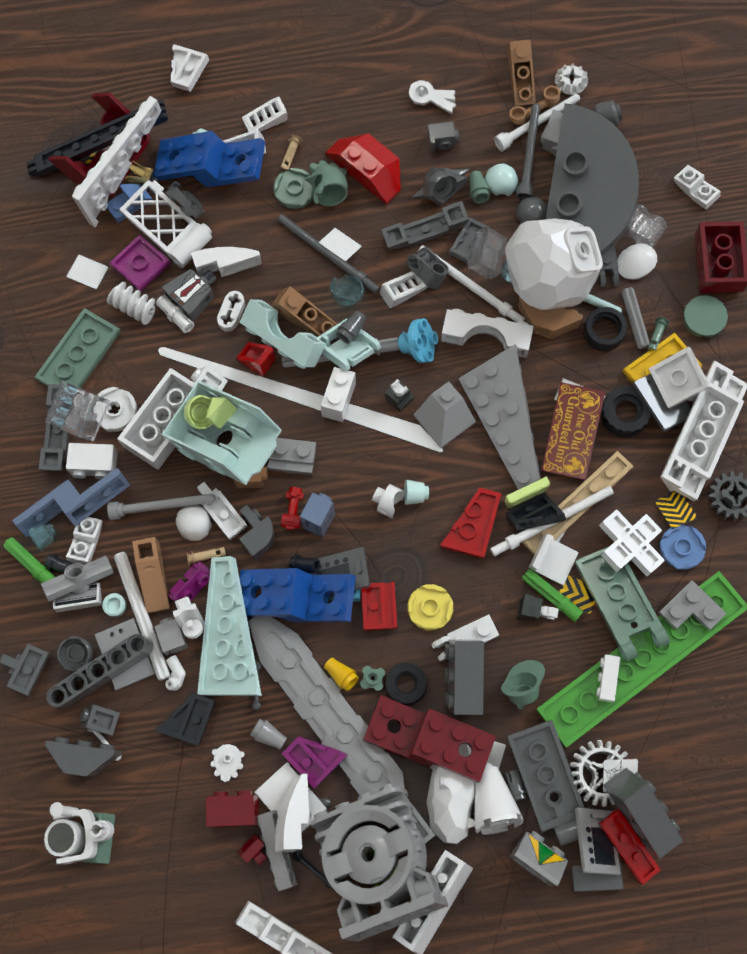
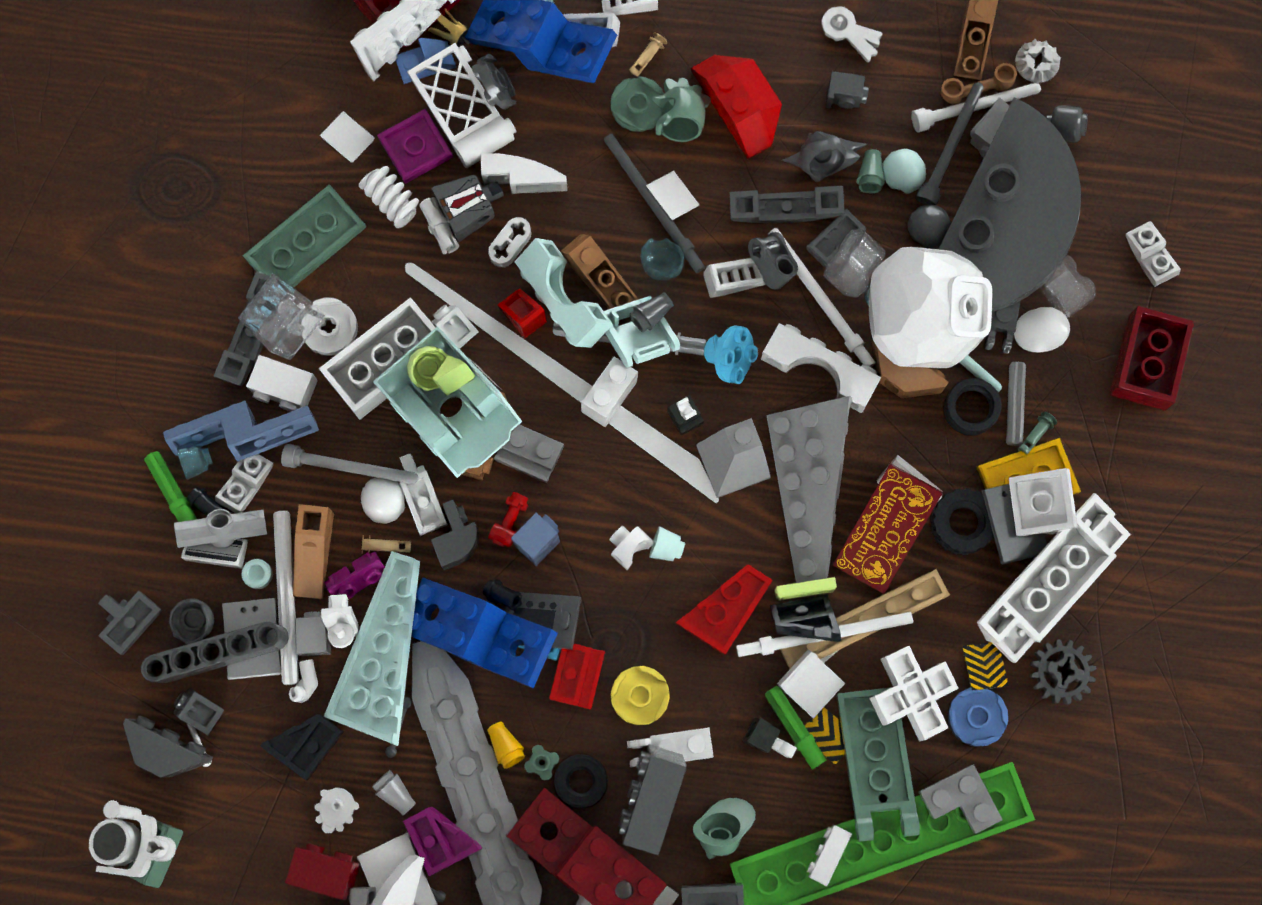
camera: 15 degrees right, 5 degrees up
(705, 316) = (1105, 428): sand green tile -> none

